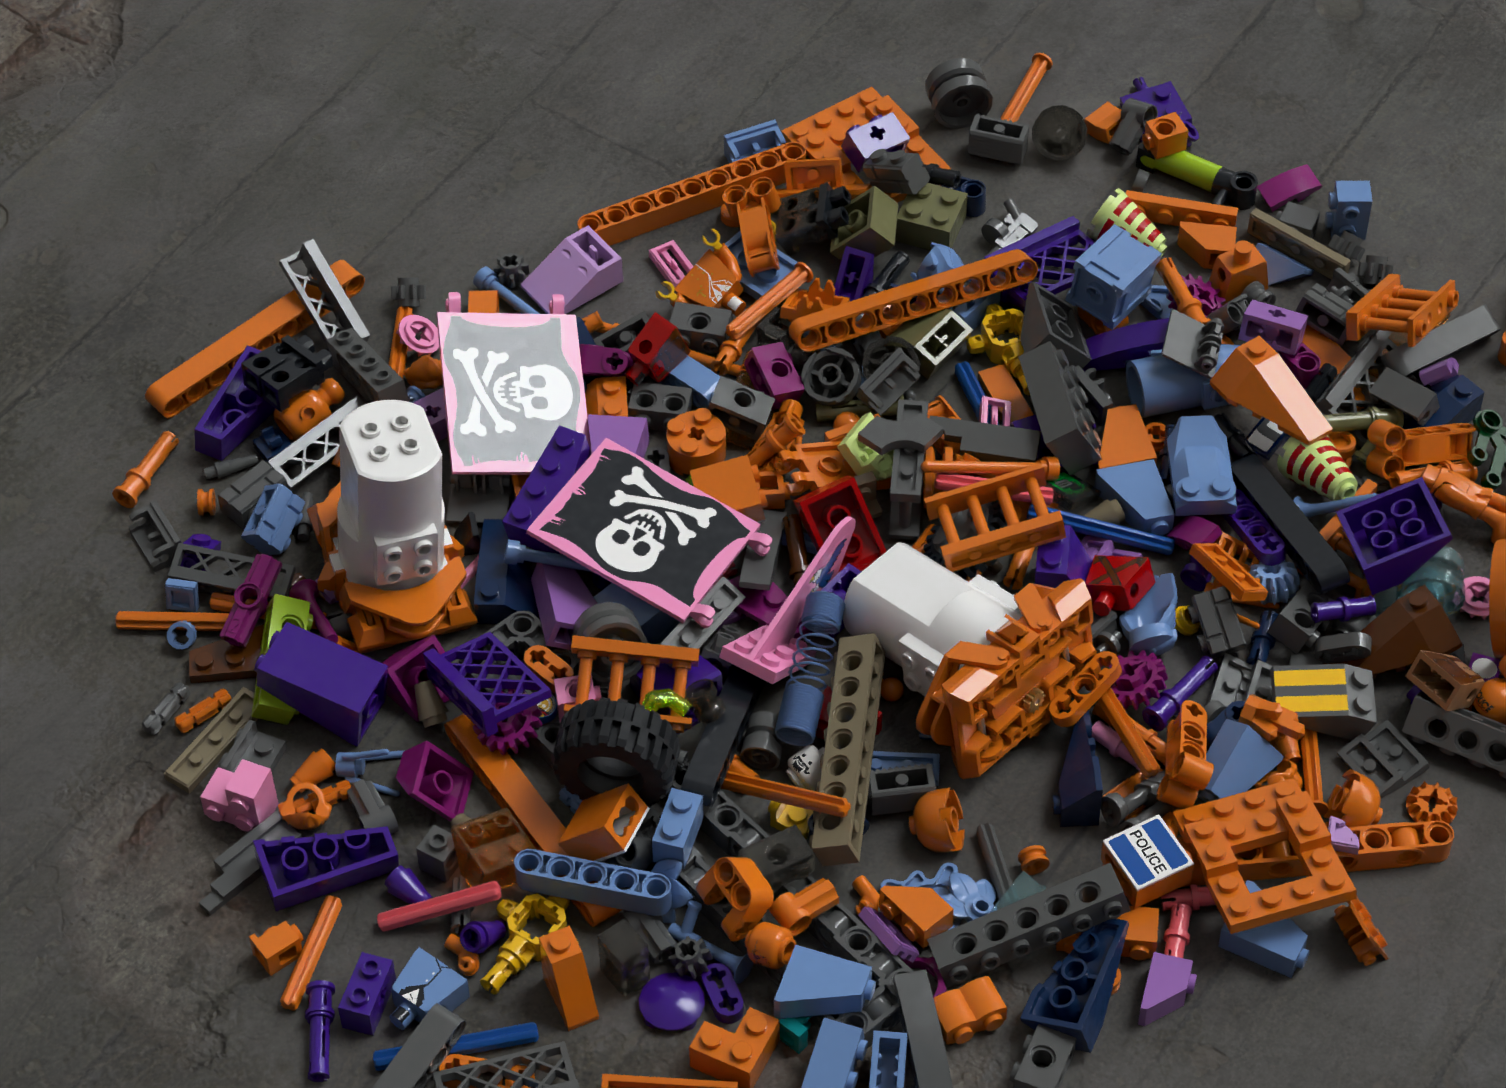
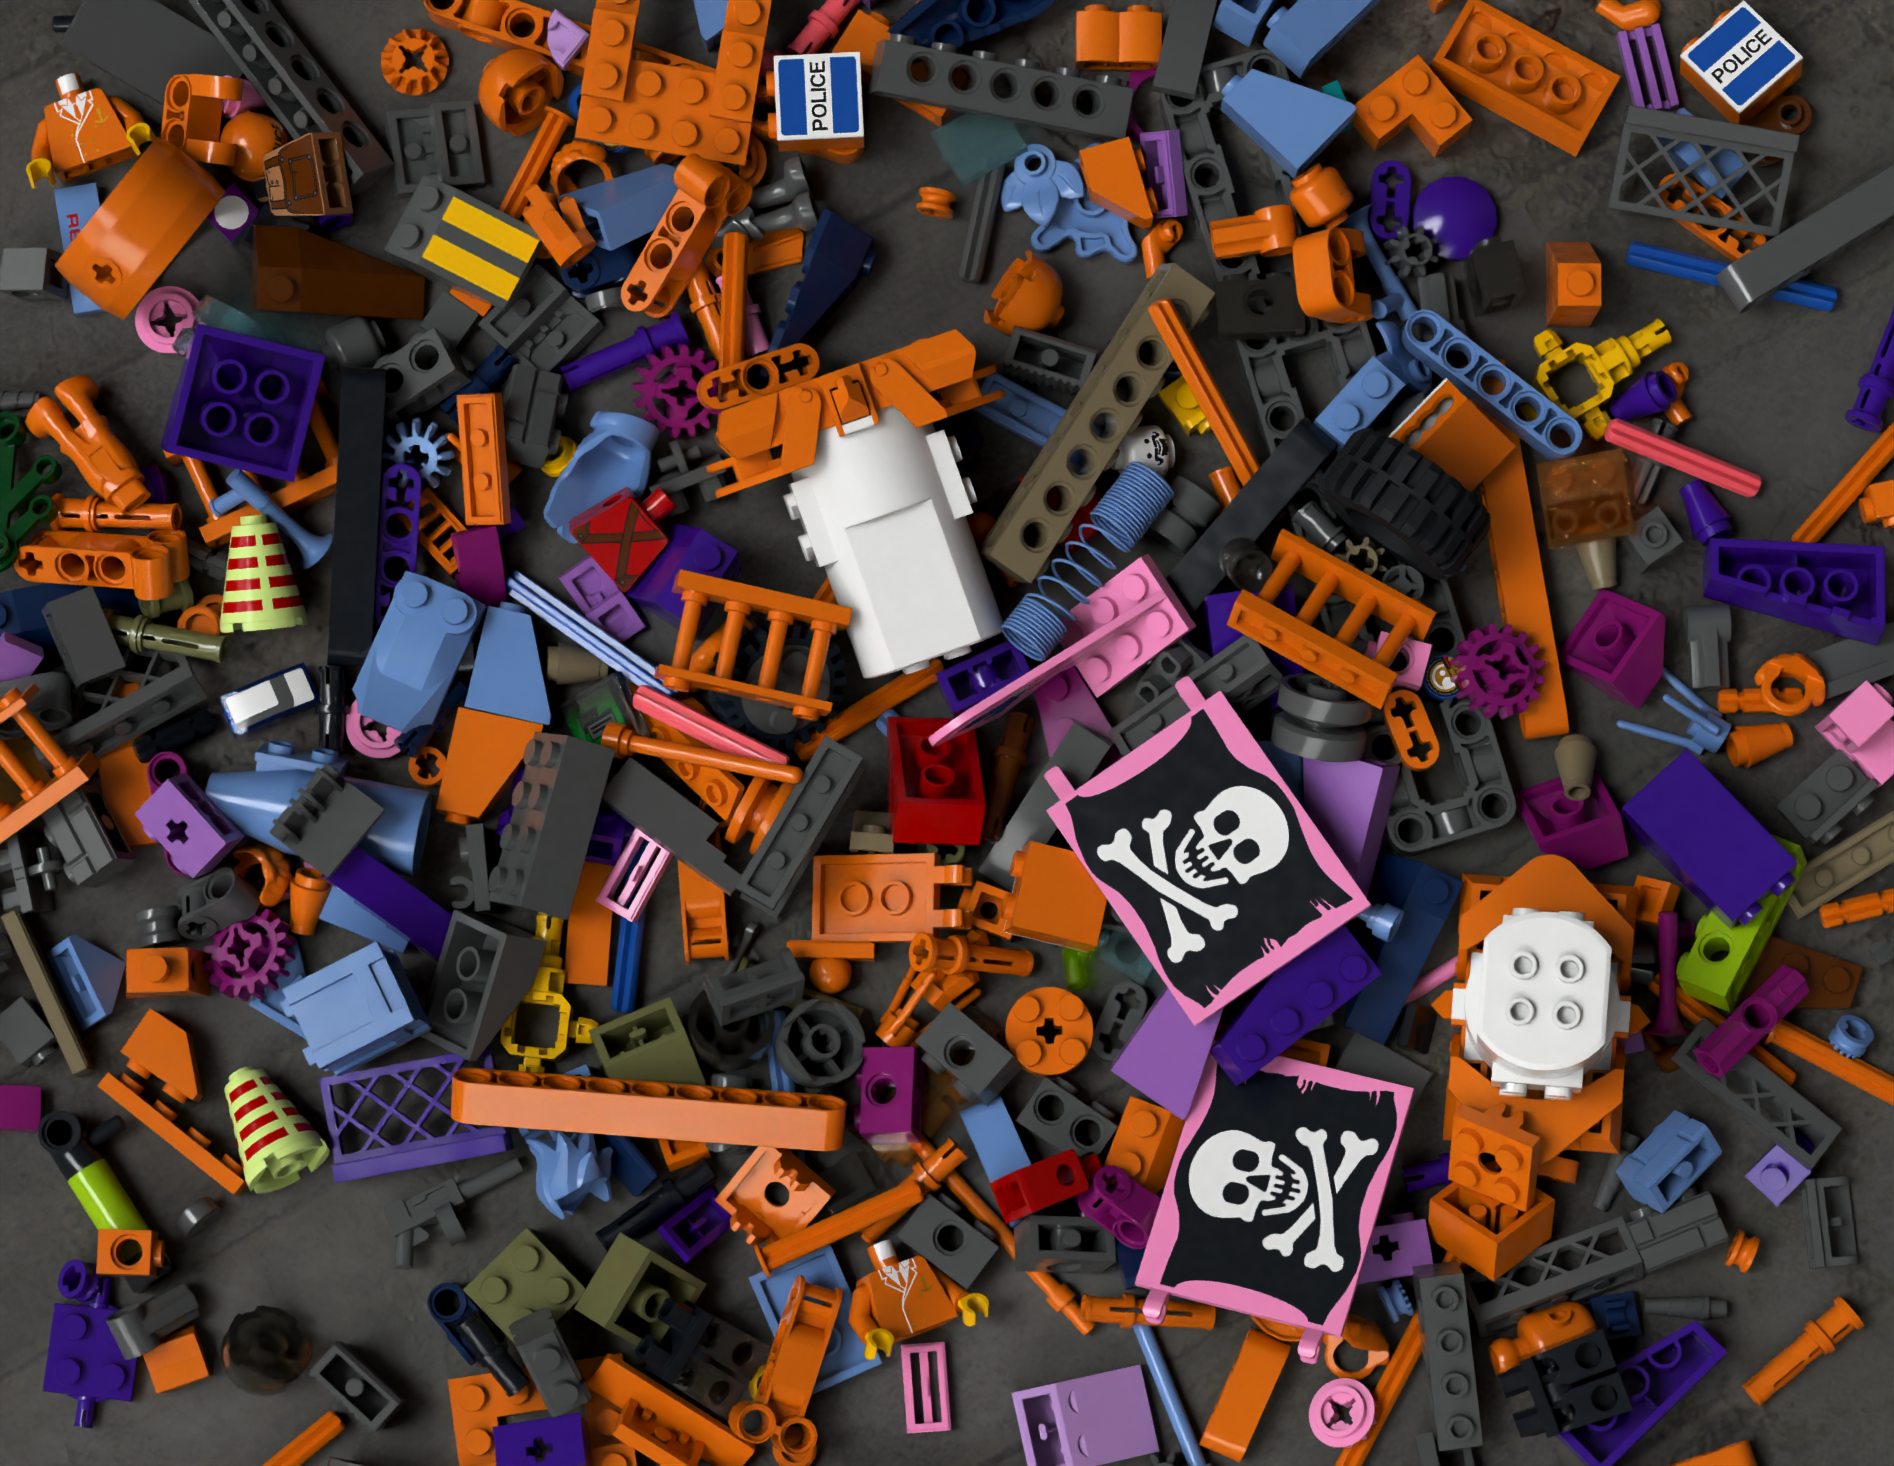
camera: 155 degrees left, 30 degrees up
(182, 595) = (1829, 1100): medium blue tile -> none
(367, 993) = (1812, 383): dark purple brick -> none
(423, 985) = (1740, 357): medium blue torso -> none
(466, 691) = (1541, 728): dark purple fence -> none
(666, 698) = (1303, 568): clear neon green arm -> none
(861, 457) = (828, 894): yellowish green slope -> none
(912, 433) = (784, 834): dark grey tile -> none
(1179, 291) = (279, 919): orange pin -> none
(1264, 384) = (272, 704): orange wedge -> none
(1343, 609) = (370, 342): dark purple pin -> none
(1343, 647) = (398, 299): dark grey beam -> none

